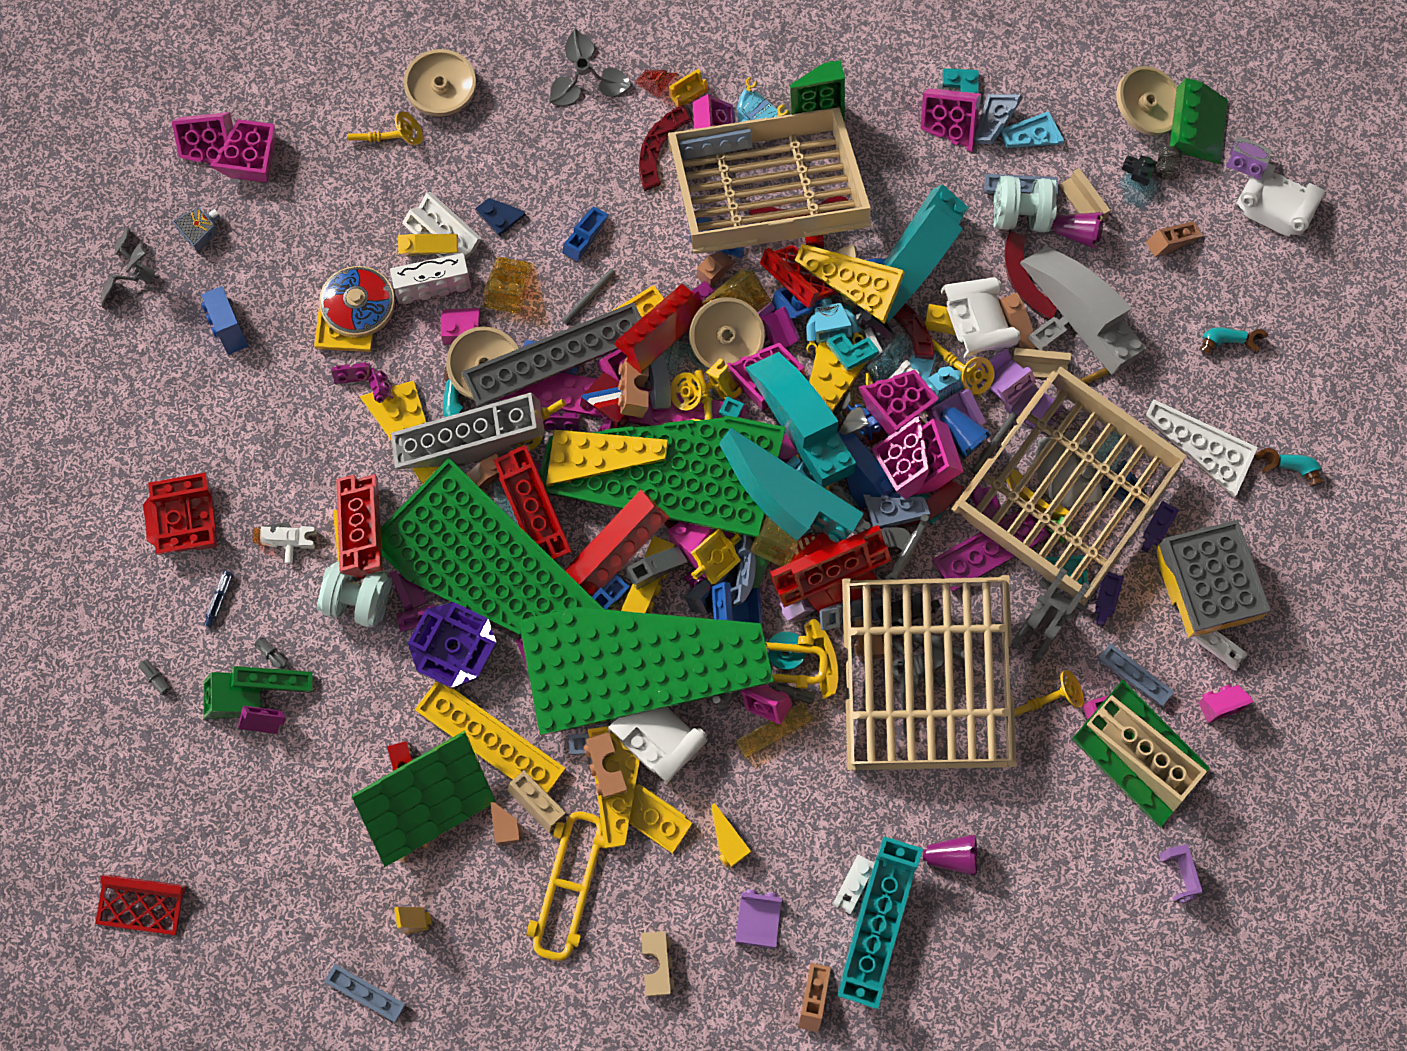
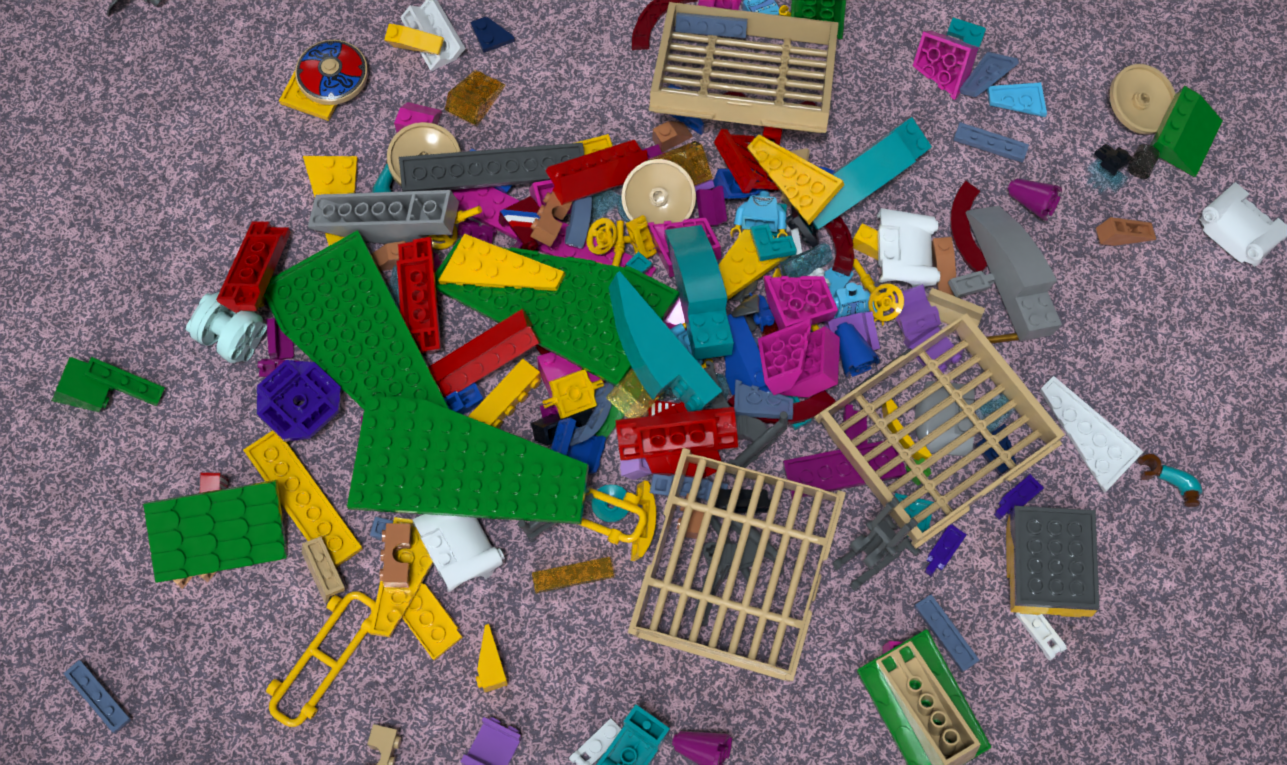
camera: 20 degrees right, 5 degrees down
(154, 677) = (22, 349): dark grey axle -> none
(180, 514) = (102, 212): red slope -> none
(218, 598) = (106, 297): dark blue piece -> none
(224, 320) = (206, 55): wedge -> none
(261, 719) = (99, 415): magenta panel -> none
(270, 653) = (134, 359): dark grey axle -> none
(284, 535) = (187, 259): white piece -> none
(348, 374) = (299, 133): magenta hinge -> none
(380, 385) = (324, 151): magenta hinge -> none
(412, 919) = (162, 640): yellow slope -> none
(430, 278) = (405, 70): white brick -> none
(505, 826) = (284, 584): nougat slope -> none
(584, 233) = (561, 71): blue slope -> none
(591, 293) = (545, 128): dark grey bar -> none
(655, 567) = (512, 385): dark grey slope -> none
(767, 703) = (572, 544): dark pink slope -> none
(796, 693) = (605, 546): dark grey axle -> none
(1038, 205) = (975, 154): light aqua wheel -> none
(1070, 689) = (869, 626): yellow dish -> none
(1083, 195) = (1049, 168): tan panel -> none
(1216, 336) = (1139, 335): piece -> none
(1224, 703) = (1026, 687): dark pink slope -> none
(1248, 157) = (1223, 176): medium lavender panel -> none

